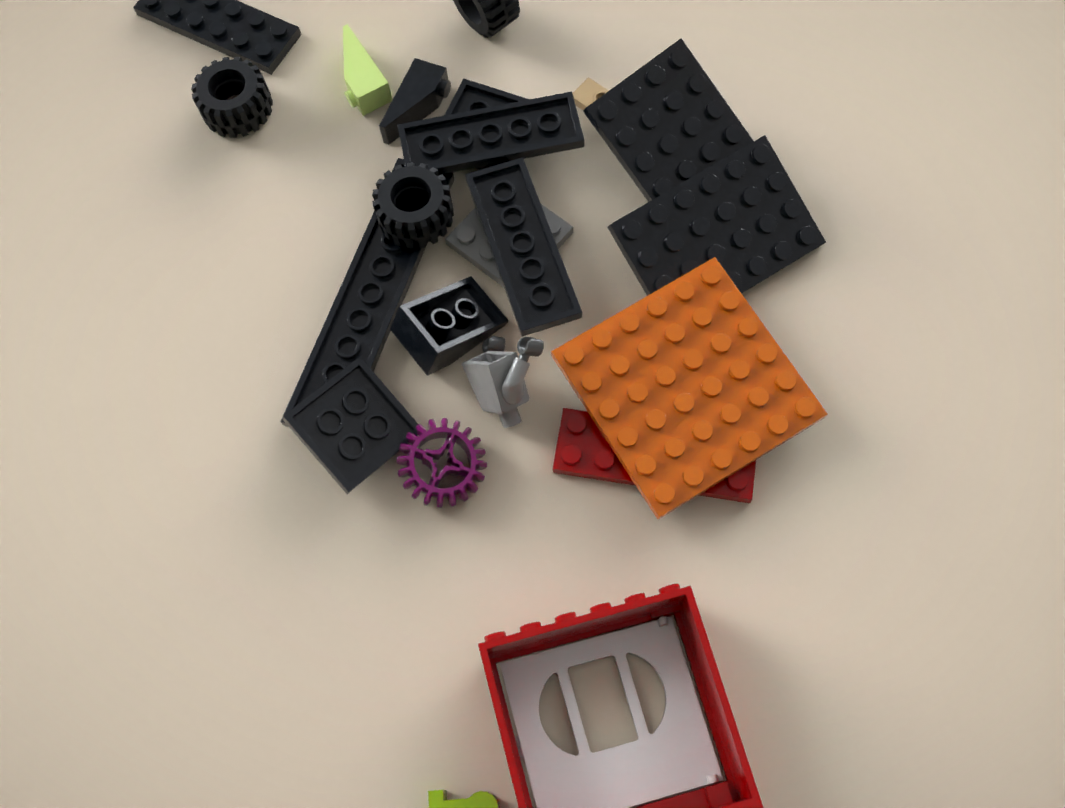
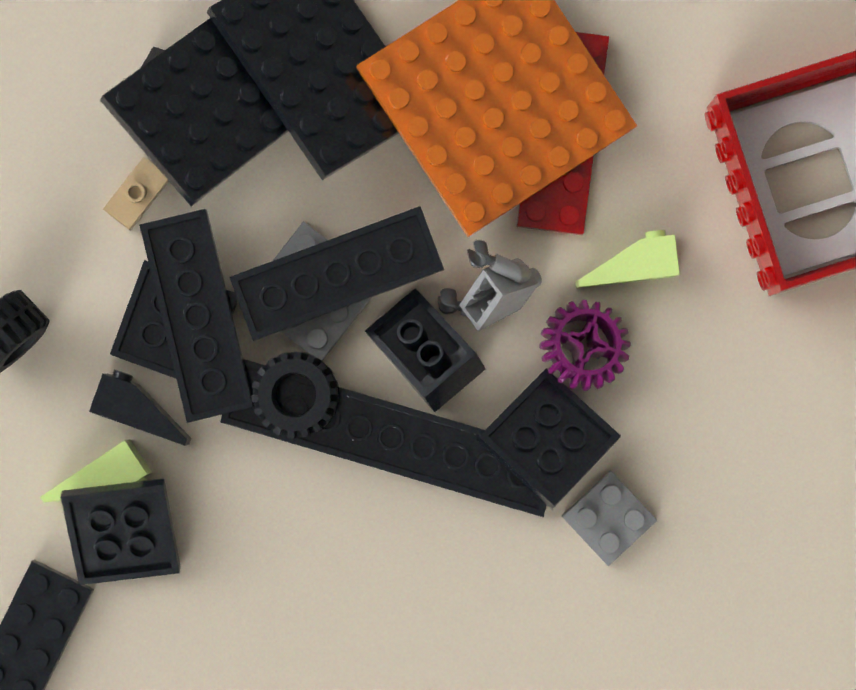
camera: 100 degrees left, 20 degrees up
(226, 80) = (116, 640): black tyre -> none
(273, 487) = (609, 518): none -> light grey plate
(312, 81) = (121, 531): none -> black plate
(522, 520) = (644, 260): none -> yellowish green slope

